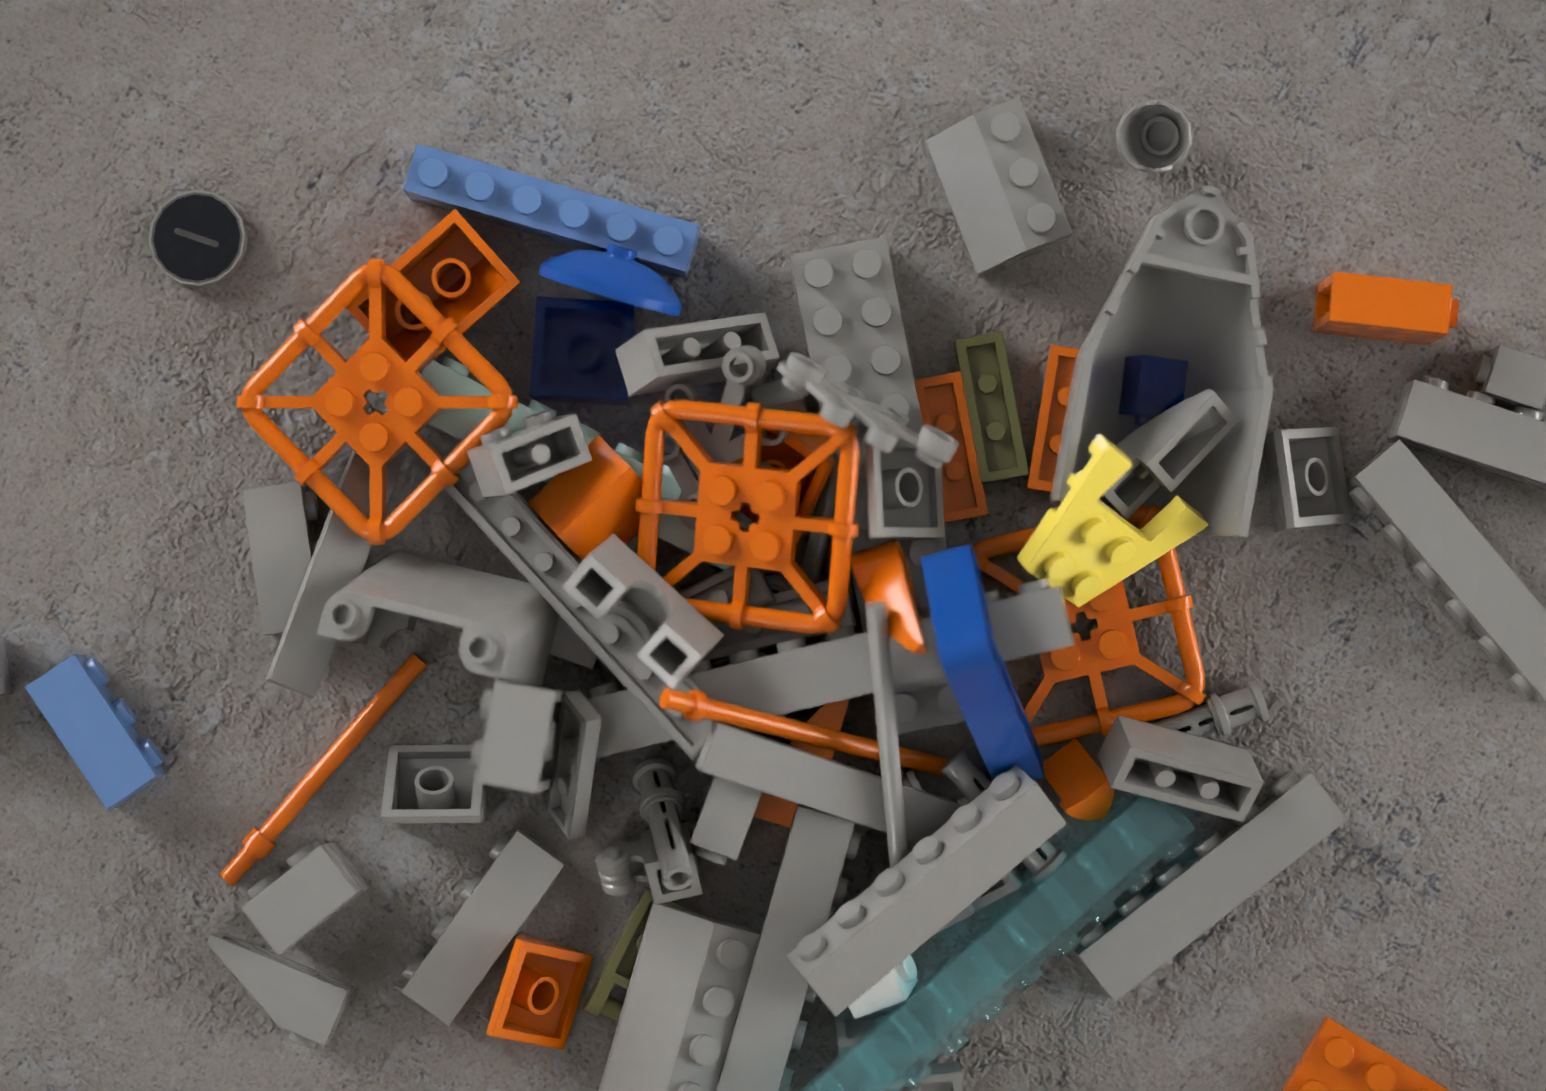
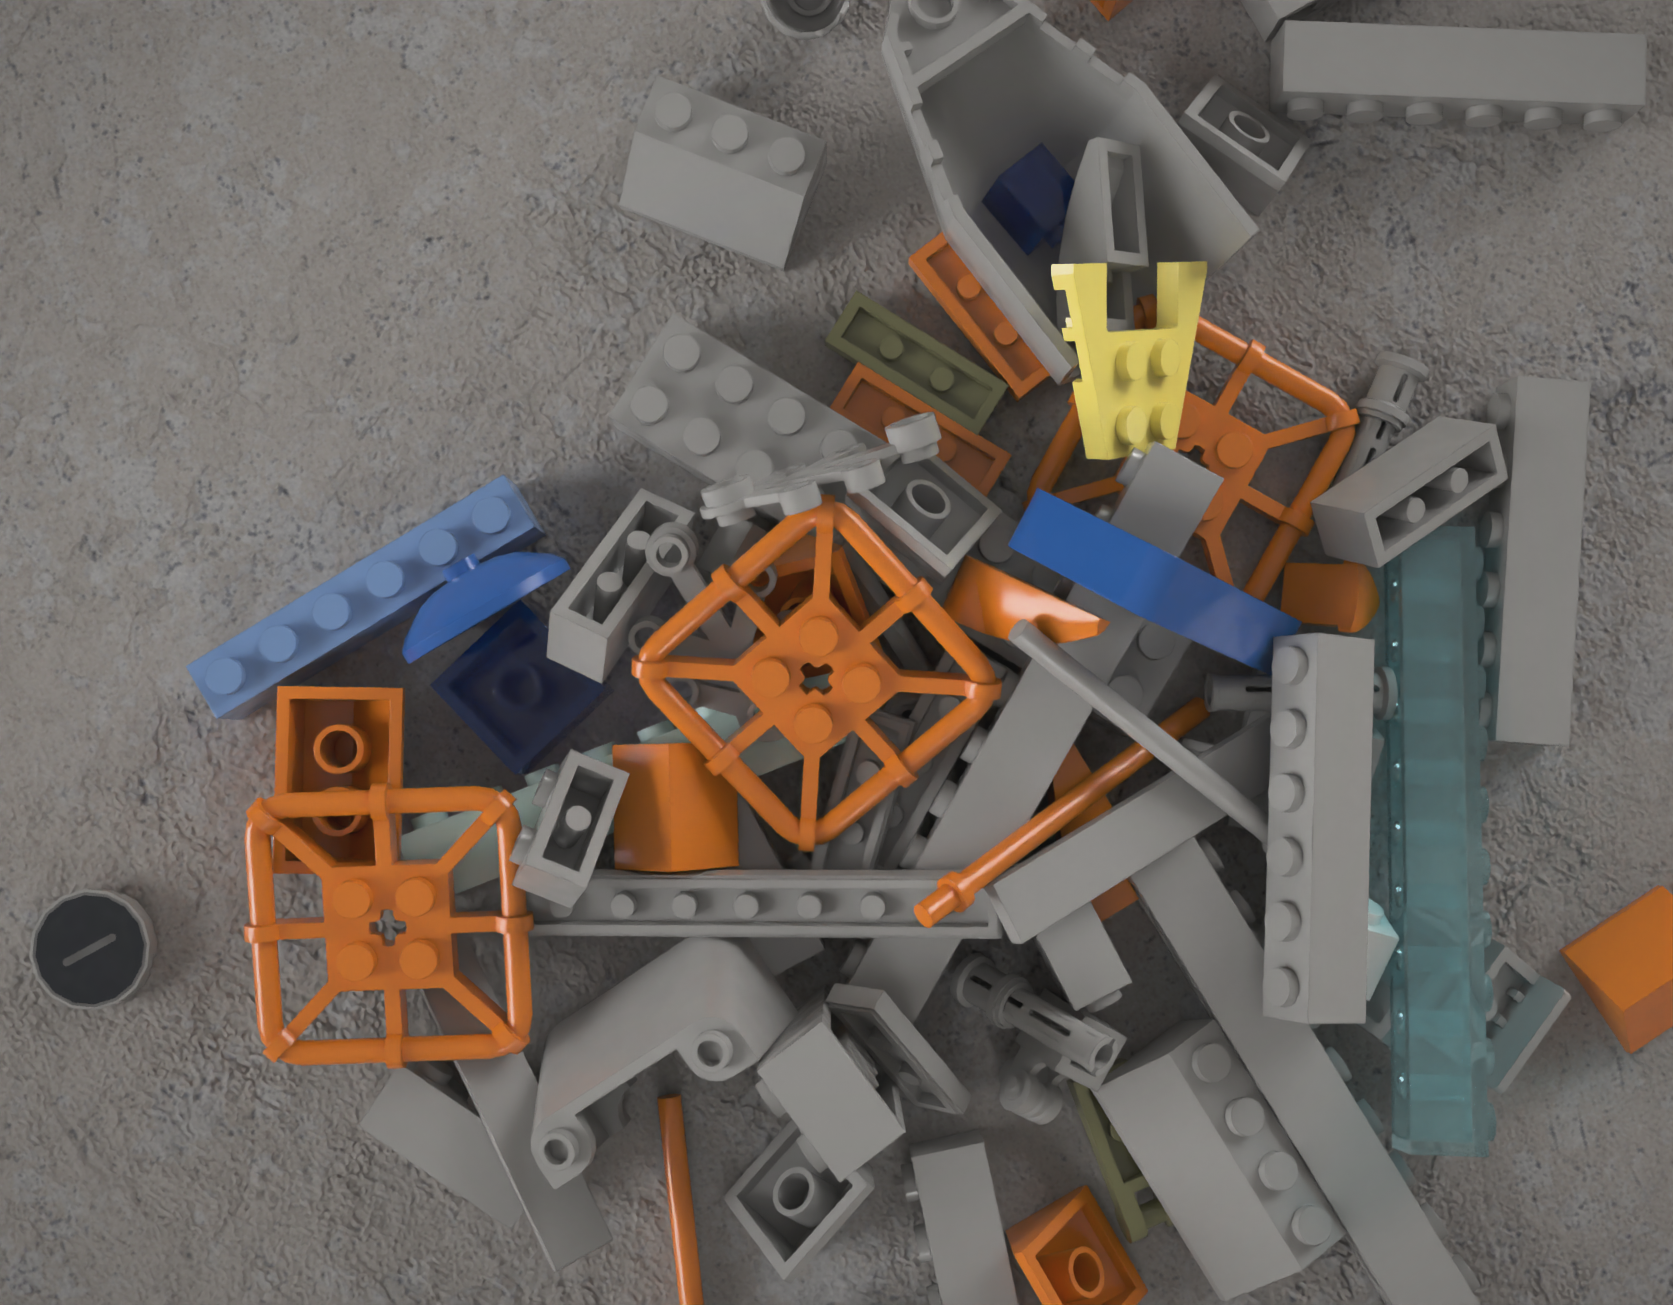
camera: 50 degrees left, 0 degrees up
(622, 584) = (774, 851): light grey arch -> none

